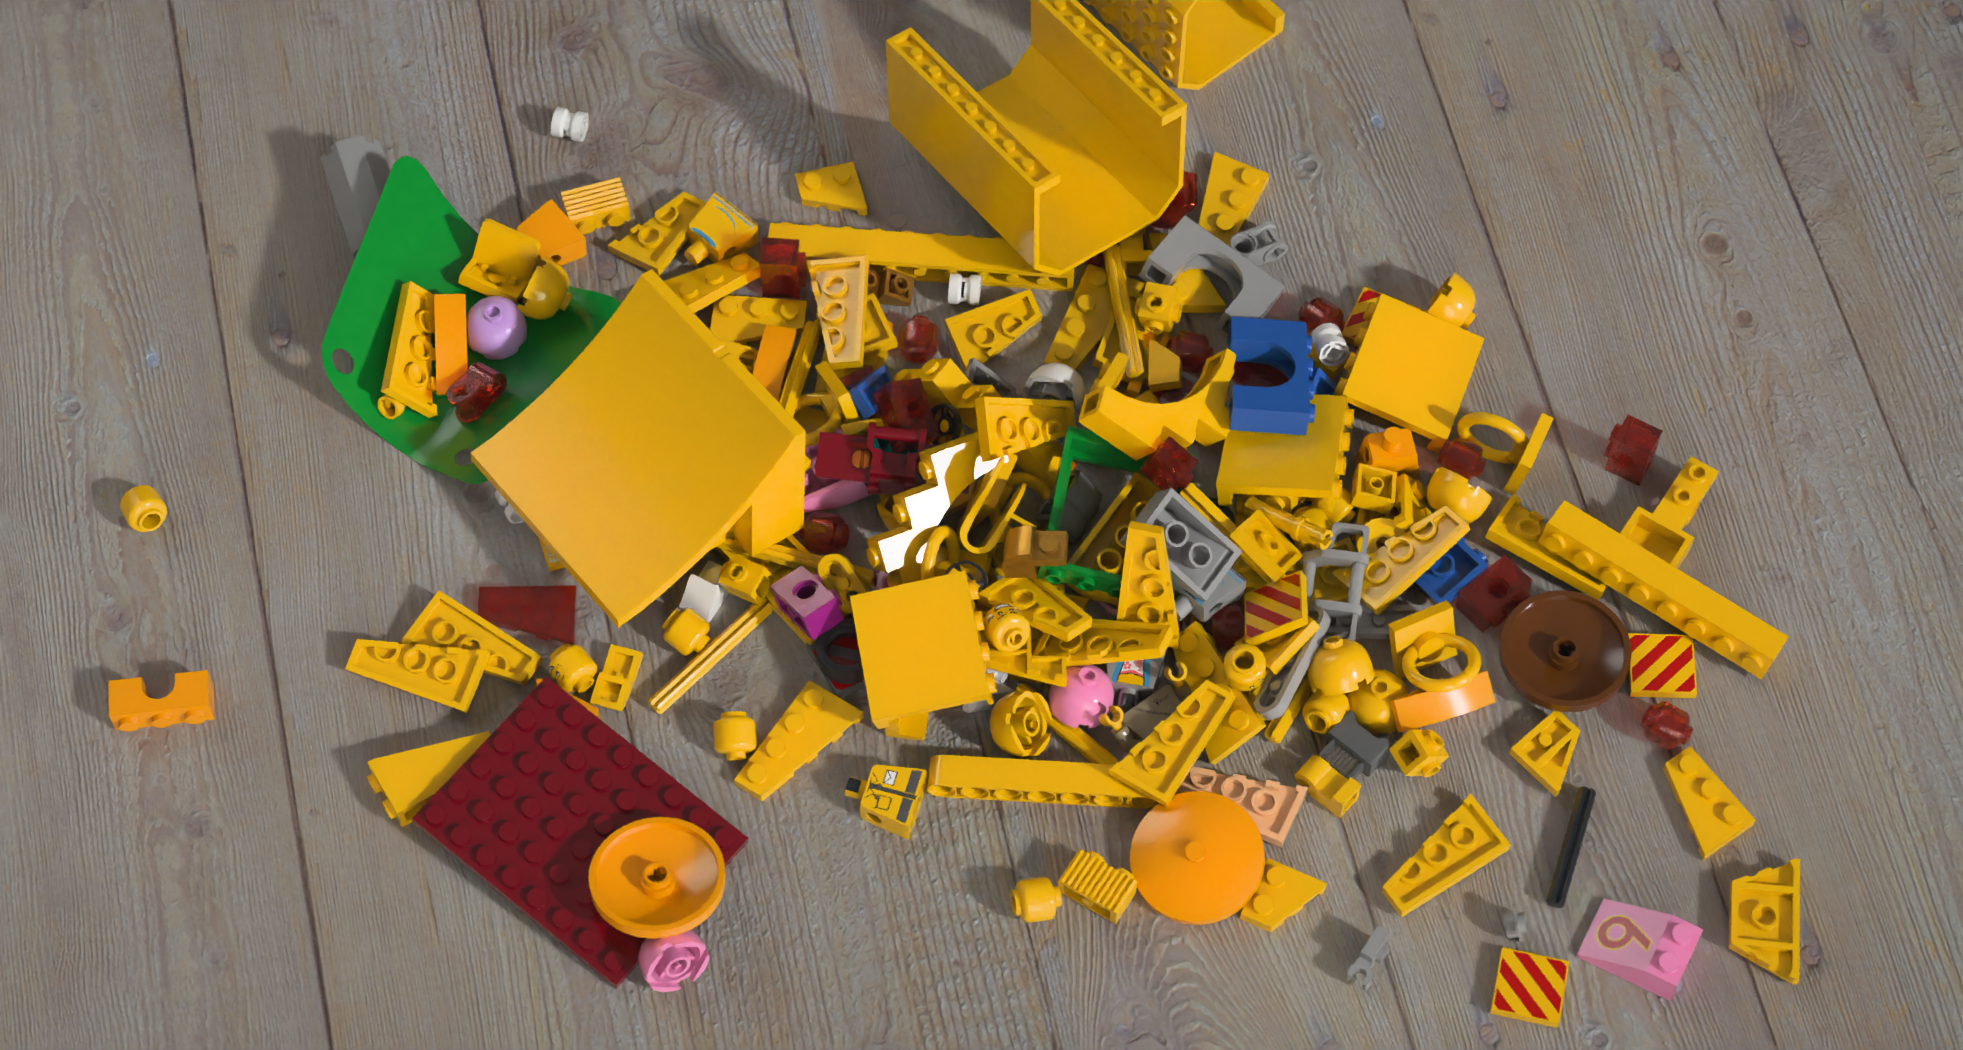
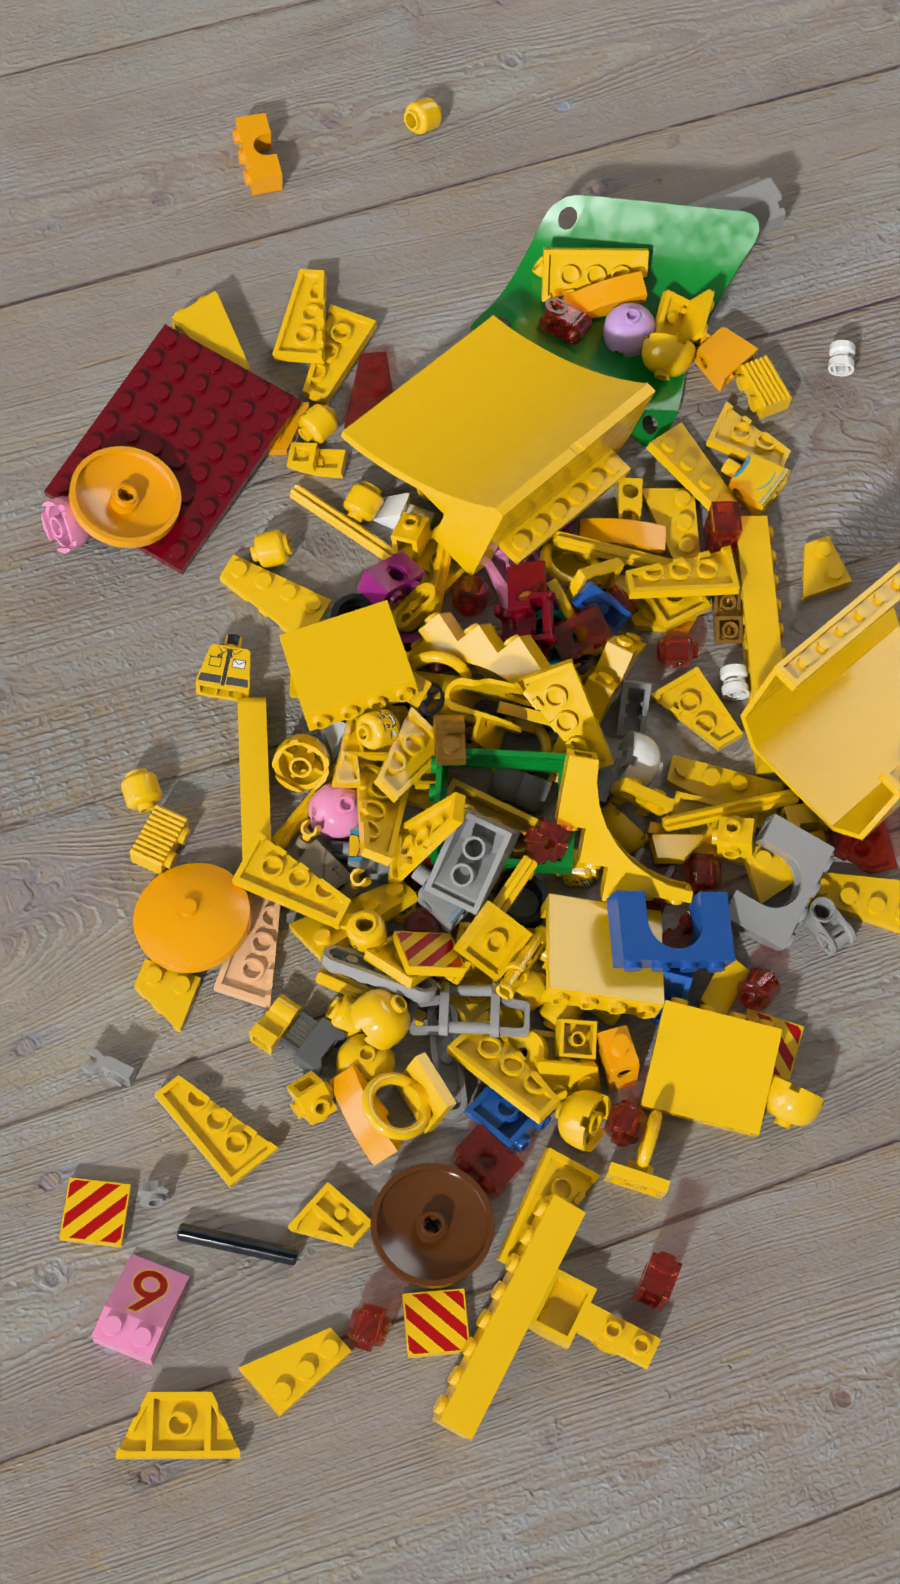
camera: 75 degrees right, 5 degrees up
(1330, 344) = (728, 992): white wheel -> none

